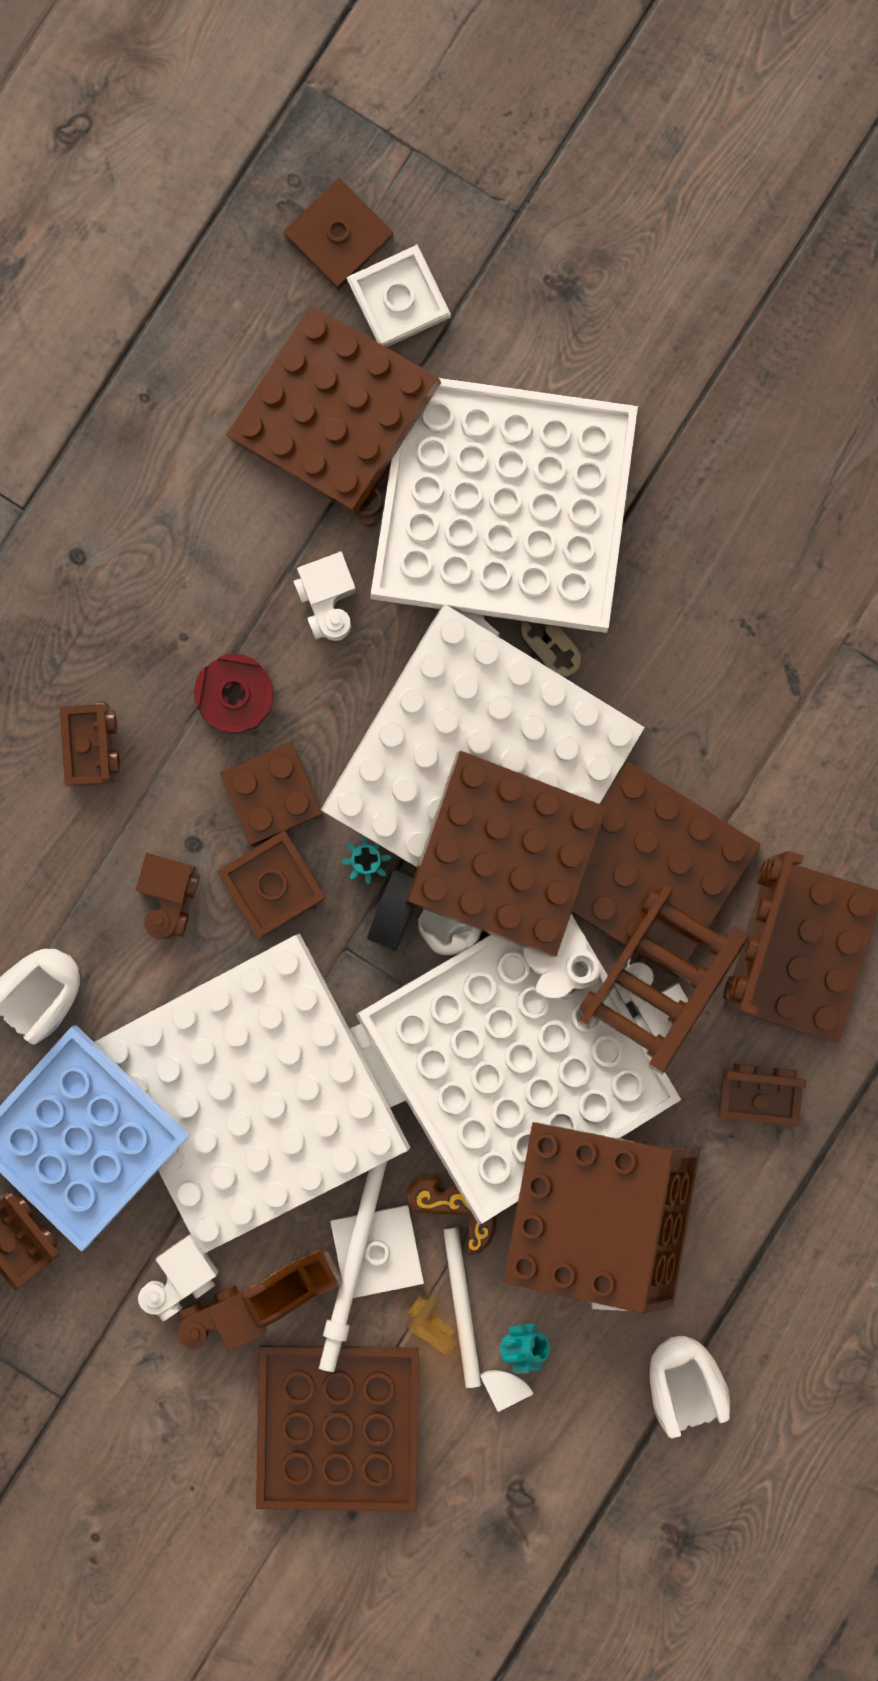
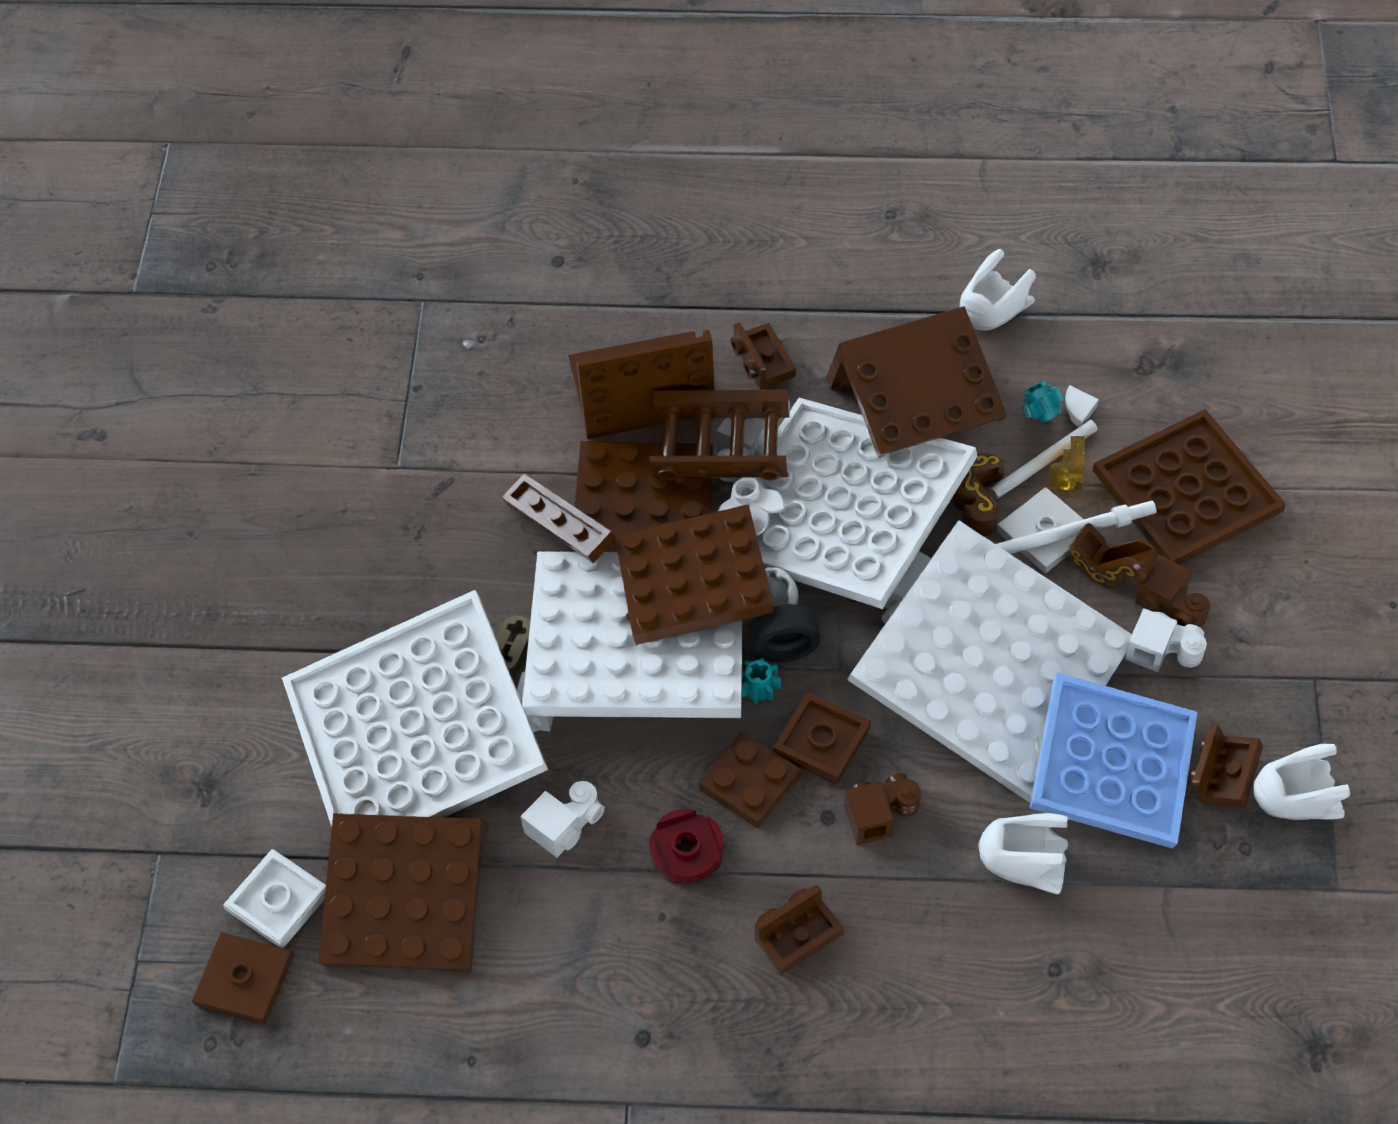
camera: 115 degrees left, 30 degrees down
(666, 765) = (559, 518): none -> plate

